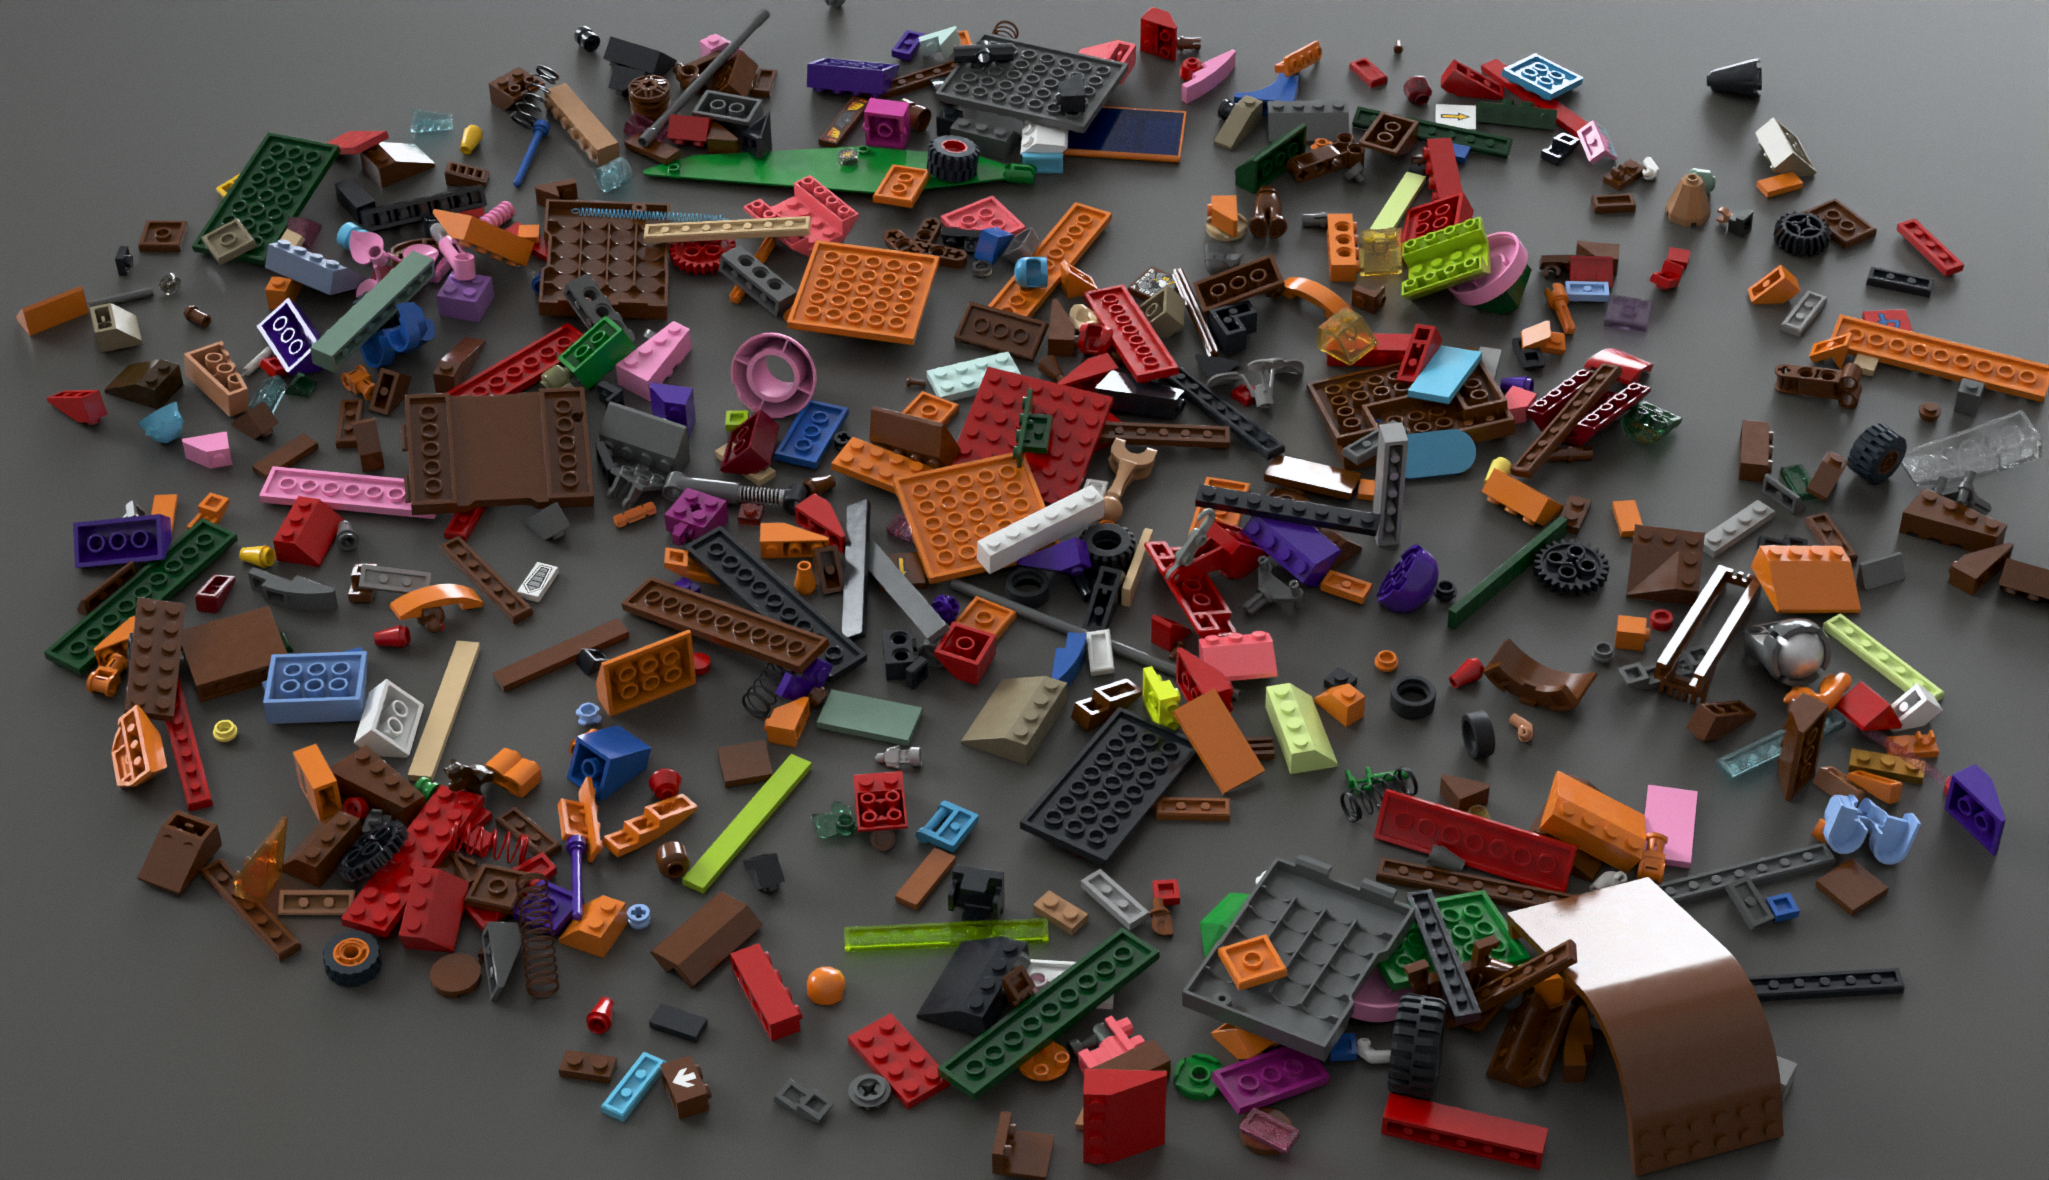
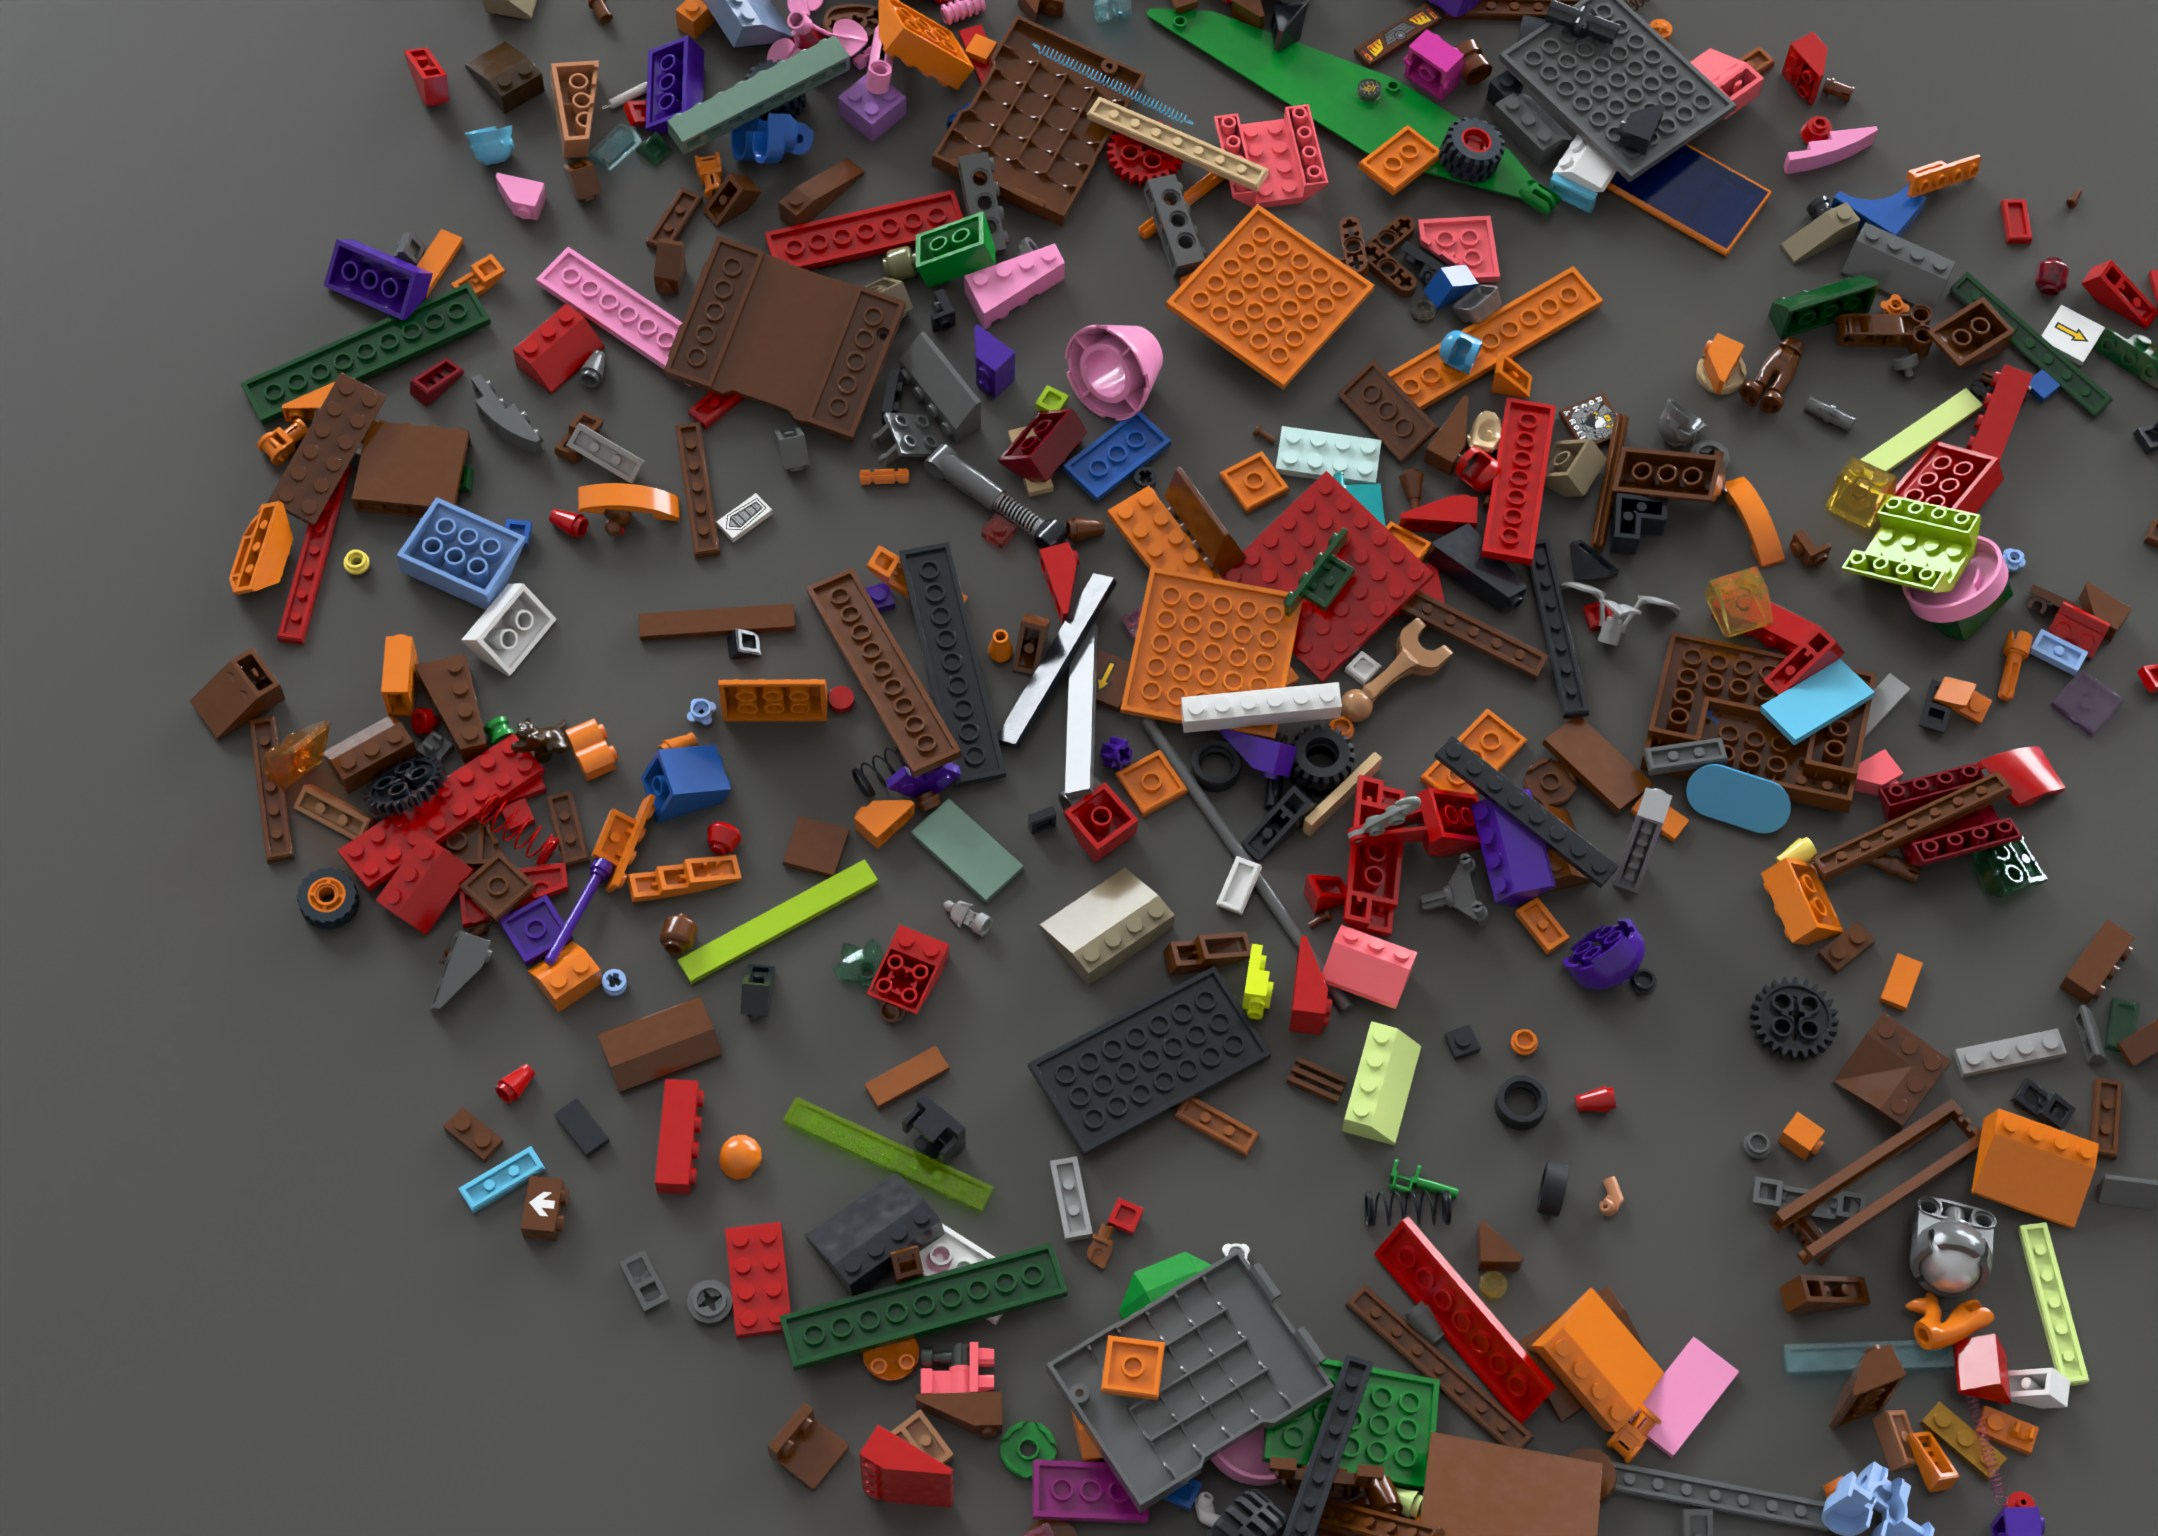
camera: 25 degrees right, 20 degrees up
(106, 589) = (338, 330): reddish brown slope -> none
(260, 556) = (497, 355): yellow cone -> none
(286, 455) = (591, 235): reddish brown tile -> none
(444, 711) = (570, 637): tan tile -> none
(455, 975) = (412, 964): reddish brown tile -> none
(528, 890) = (527, 906): reddish brown piece -> none
(695, 515) = (936, 513): magenta hinge -> none
(788, 541) = (1008, 585): orange slope -> none
(898, 652) = (1033, 786): black brick -> none
(952, 831) = (967, 1032): dark azure plate -> none
(1060, 912) = (1011, 1185): medium nougat plate -> none
(1070, 659) = (1199, 882): blue slope -> none
(1218, 741) = (1280, 1066): orange tile -> none
(1342, 247) = (1839, 433): orange brick -> none
(1342, 703) = (1443, 1073): orange slope -> none
(1505, 574) = (1721, 992): dark green tile -> none
(1521, 382) = (1897, 747): dark purple cone -> none
(1535, 682) = (1664, 1145): reddish brown panel -> none
(1609, 879) = (1575, 1431): white arm -> none
(1661, 620) = (1849, 1132): red tile -> none

